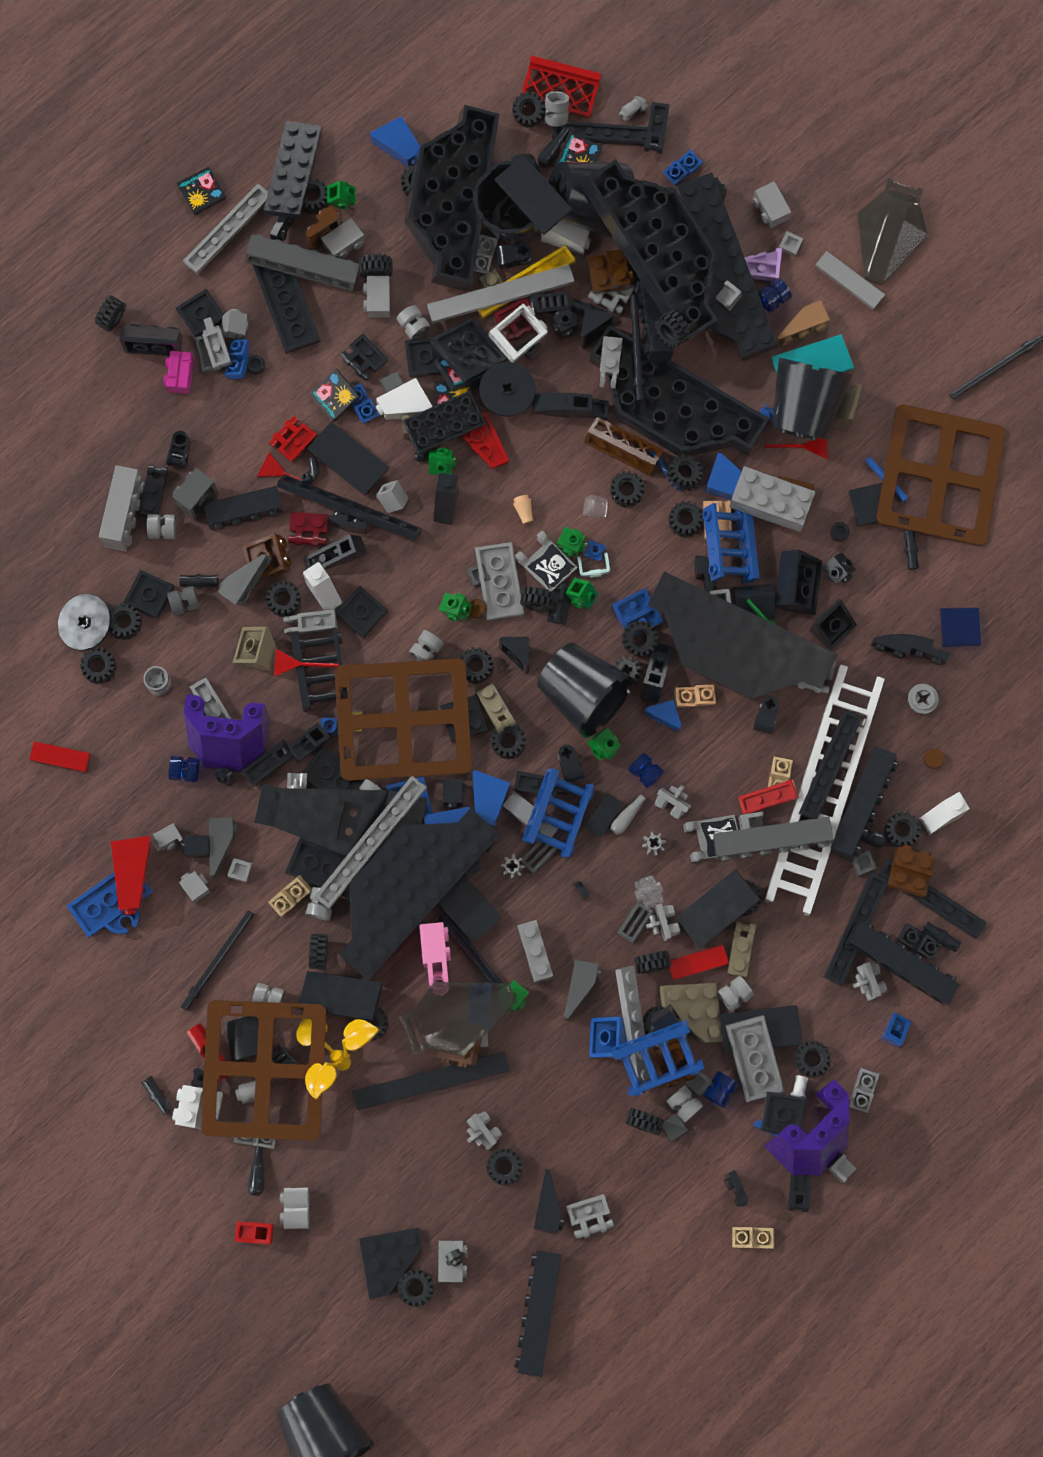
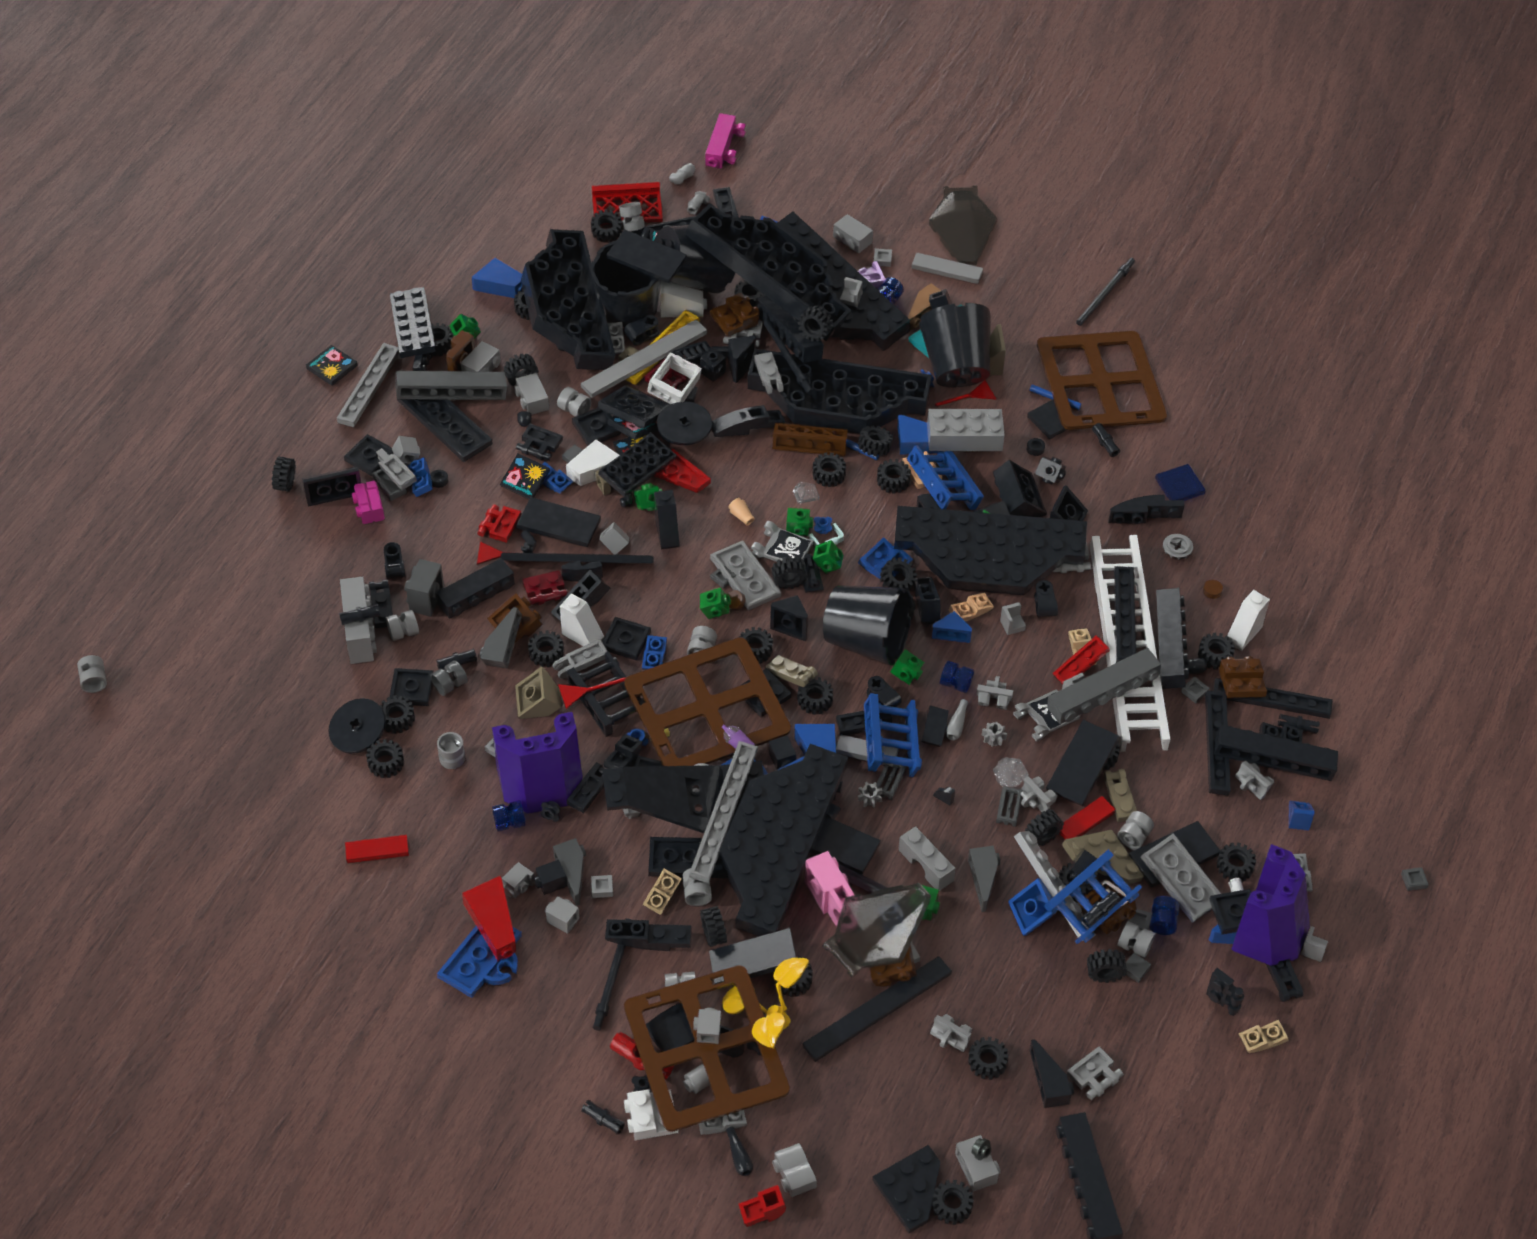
camera: 20 degrees left, 25 degrees down
(118, 514) = (359, 614): none -> black pin
(260, 936) = (648, 936): none -> black slope
(269, 1055) = (708, 1025): none -> light grey brick
(360, 323) = (524, 418): none -> black hinge
(380, 639) = (654, 652): none -> blue slope
(414, 767) = (734, 734): none -> piece
(633, 65) = (682, 174): none -> light grey arm
(657, 1075) = (1100, 909): none -> black pin
(687, 35) = (718, 147): none -> dark pink brick
(727, 725) = (1012, 619): none -> light grey panel
(817, 334) = (939, 299): none -> black brick
(967, 1135) = (1414, 879): none -> dark grey tile

